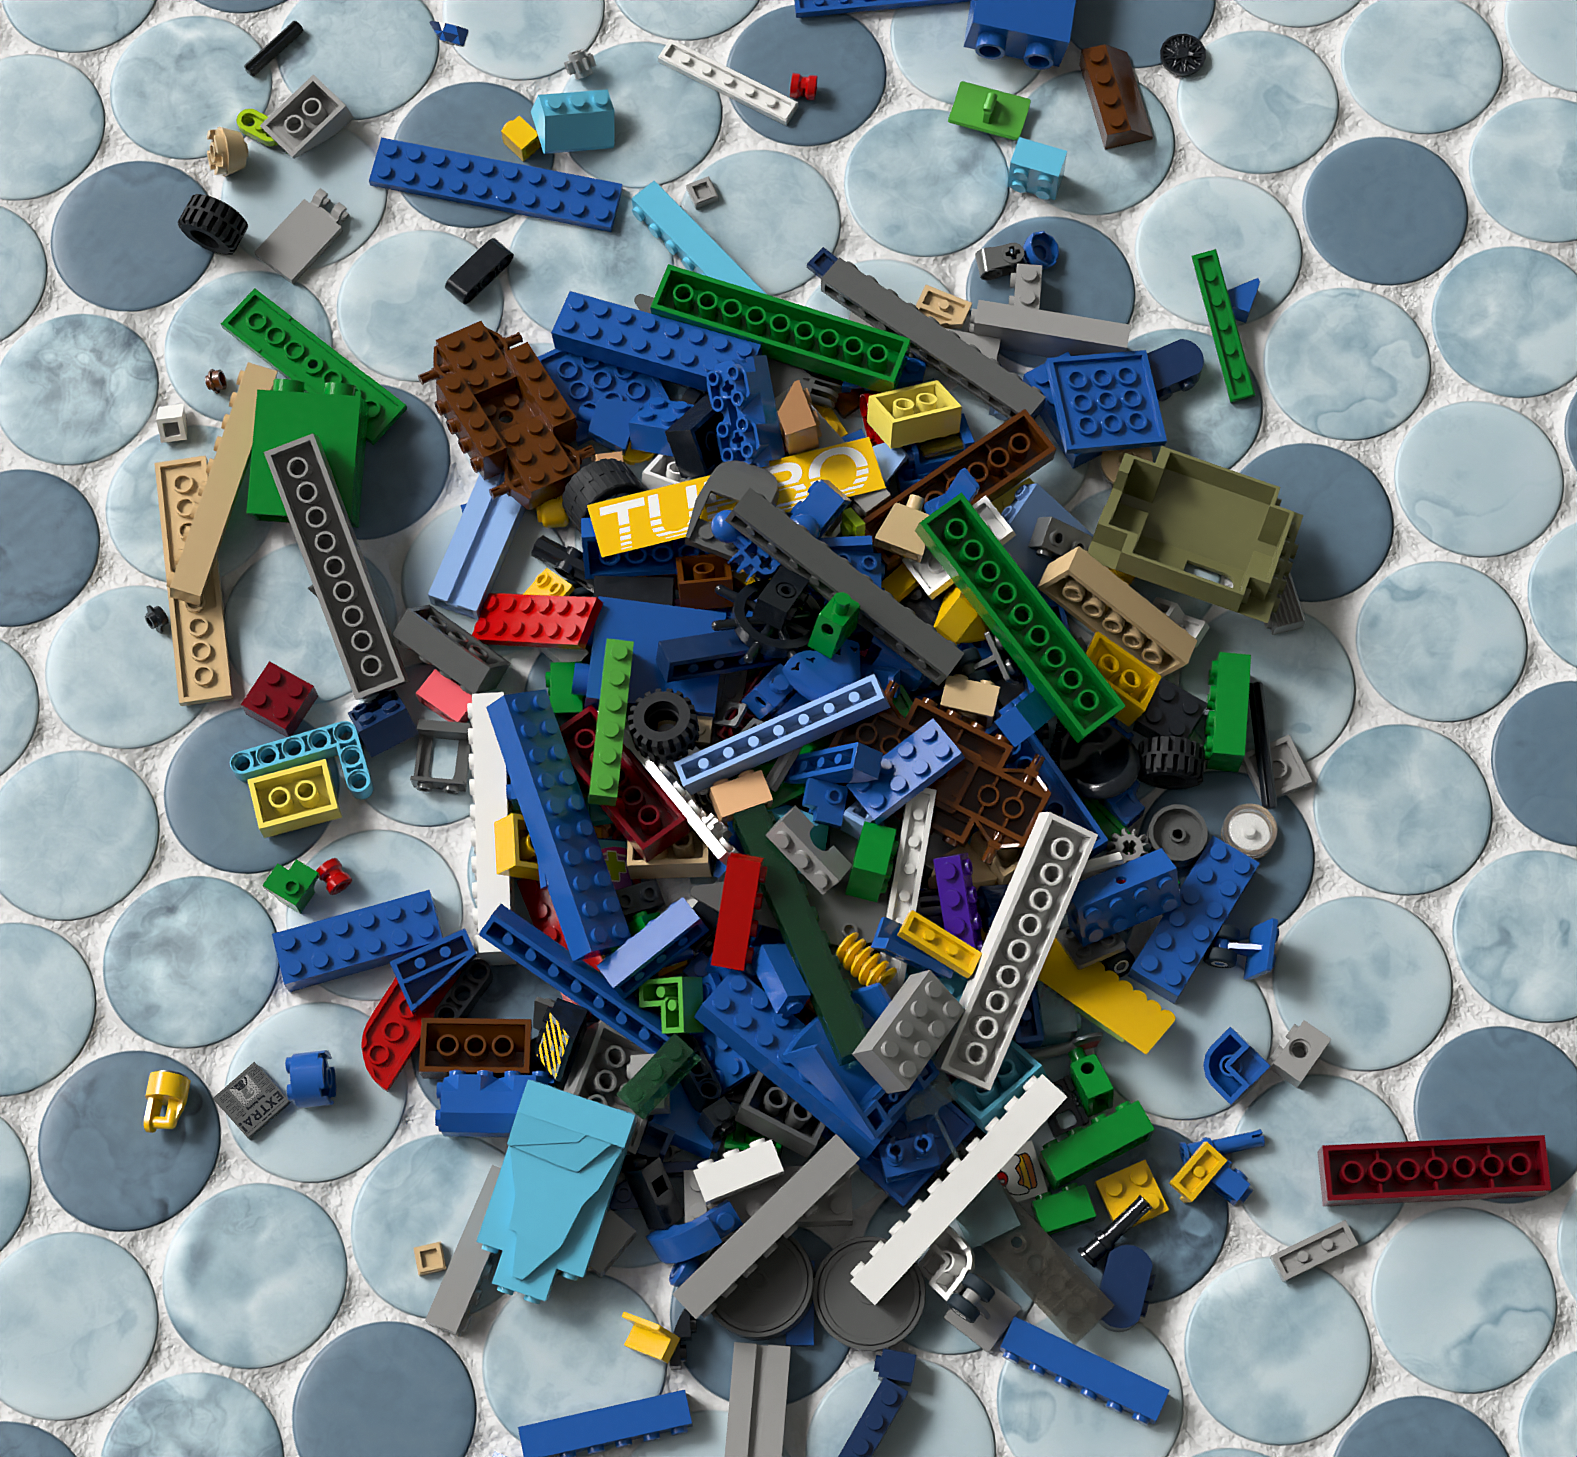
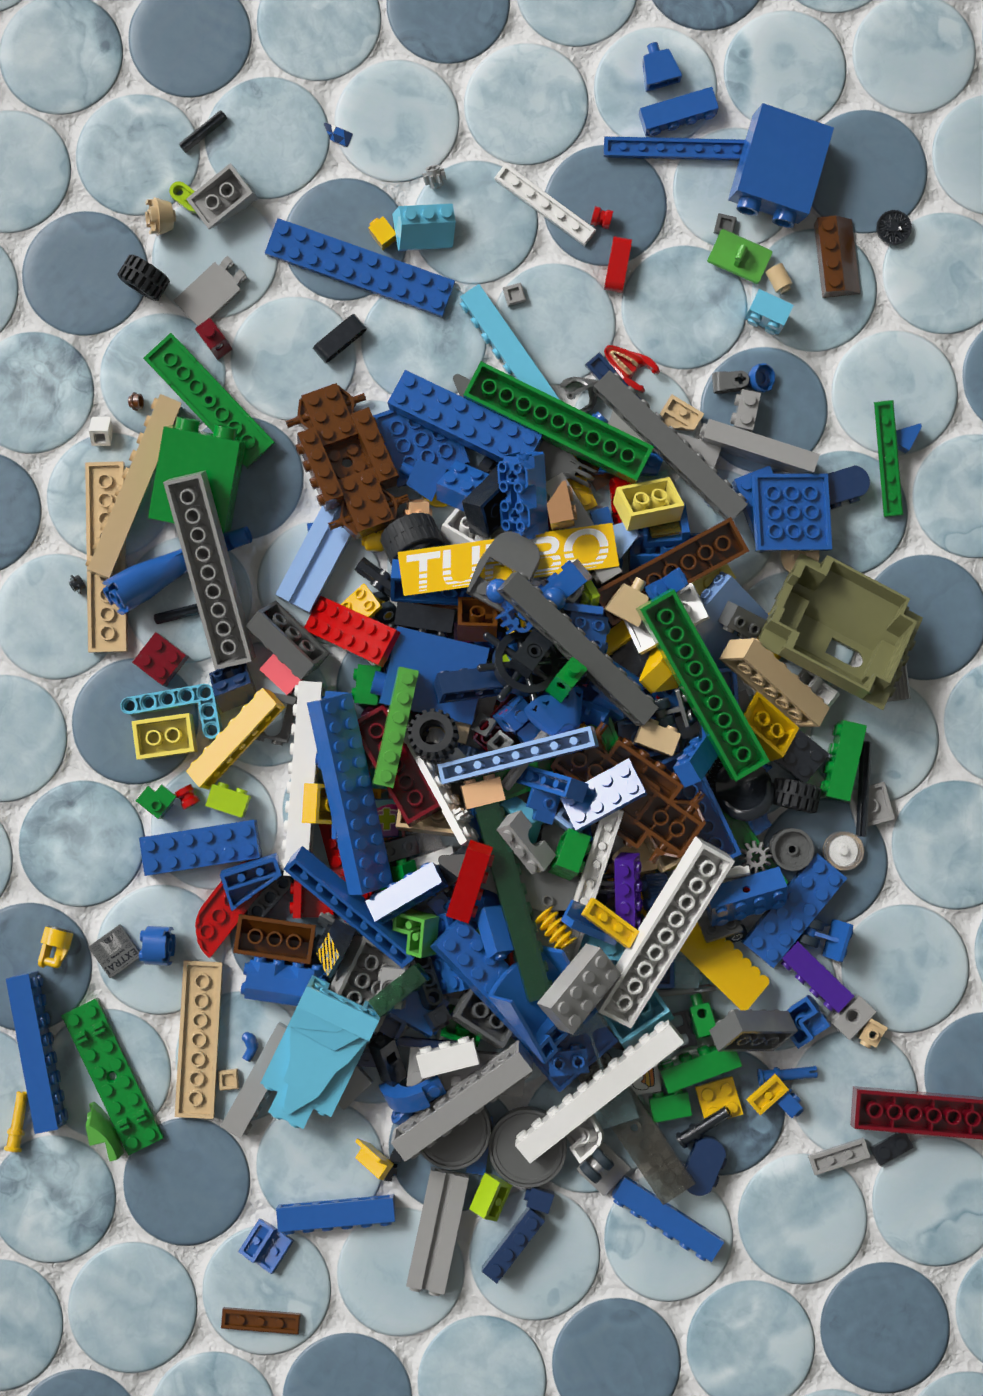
camera: 10 degrees right, 15 degrees up
(131, 1370) = (16, 1130): none -> yellow pin
(152, 1249) = (37, 1052): none -> blue brick
(252, 595) = (146, 579): none -> blue brick
(253, 1348) = (101, 1130): none -> bright green slope
(279, 1303) = (121, 1096): none -> green piece
(297, 640) = (175, 614): none -> black axle
(307, 284) = (213, 338): none -> dark red torso
(382, 1207) = (198, 1039): none -> tan plate
(391, 871) = (228, 800): none -> lime brick
(392, 786) = (235, 738): none -> yellow brick
(458, 1205) = (251, 1045): none -> blue arm
(516, 990) = (305, 903): none -> red bracket
(804, 286) = (589, 384): none -> dark grey helmet
(825, 1371) = (490, 1197): none -> lime brick
(832, 139) = (617, 264): none -> red beam
(866, 254) = (627, 363): none -> red animal
(963, 73) = (724, 222): none -> dark grey tile
(1044, 129) = (779, 278): none -> tan brick
(1162, 1077) = (752, 1030): none -> dark grey brick
(1239, 1004) = (820, 980): none -> dark purple brick
(1333, 1061) = (863, 1033): none -> tan brick
(1386, 1230) = (891, 1148): none -> black plate

